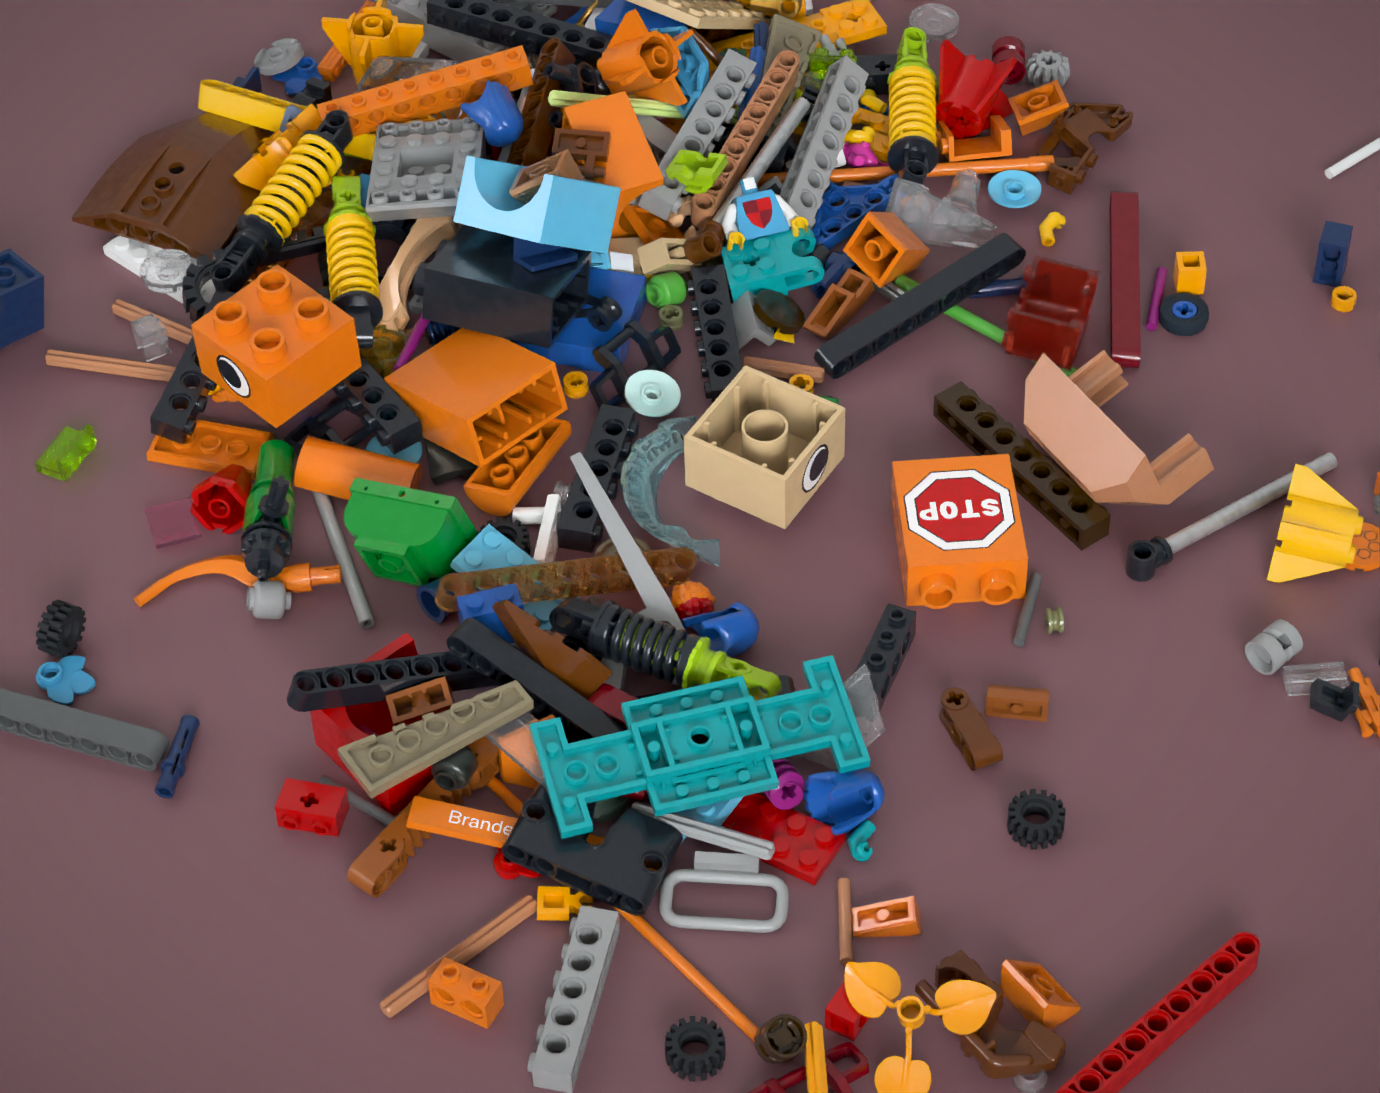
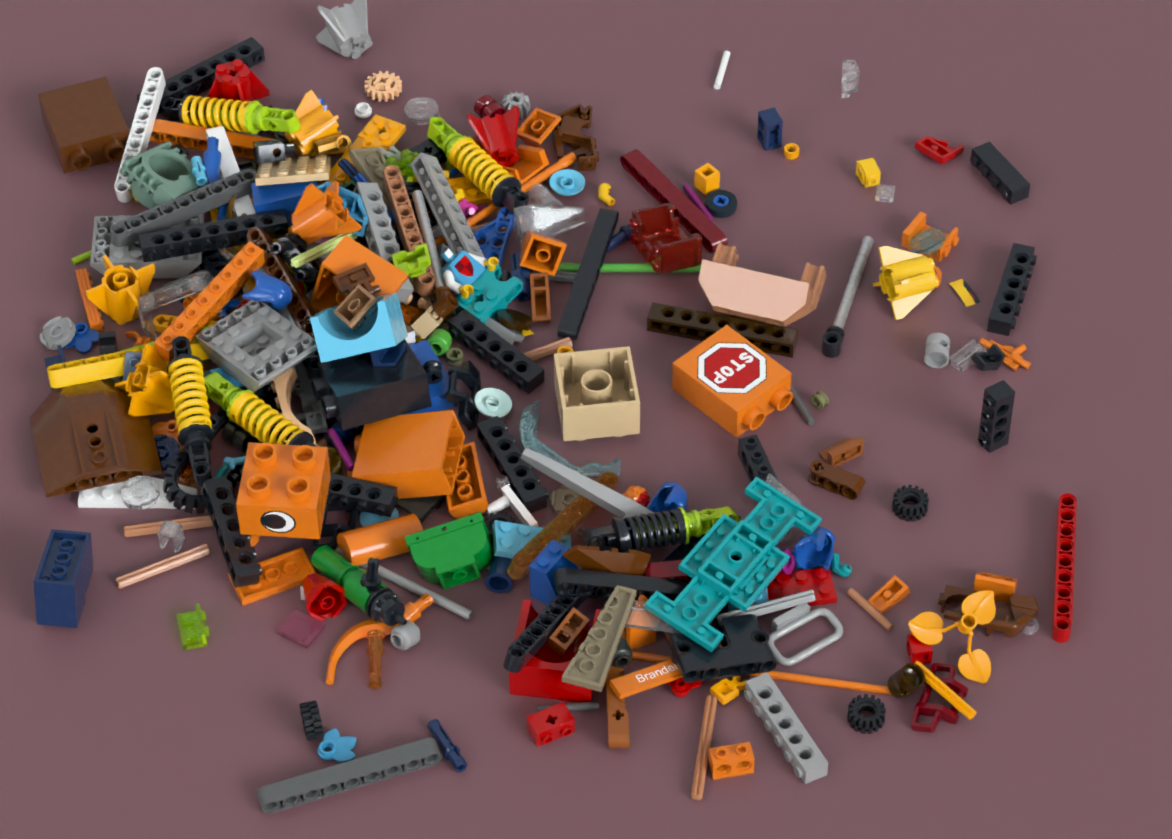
camera: 40 degrees left, 0 degrees up
(218, 597) = (375, 652): none -> clear orange pin
(1241, 770) = (996, 416): none -> black brick

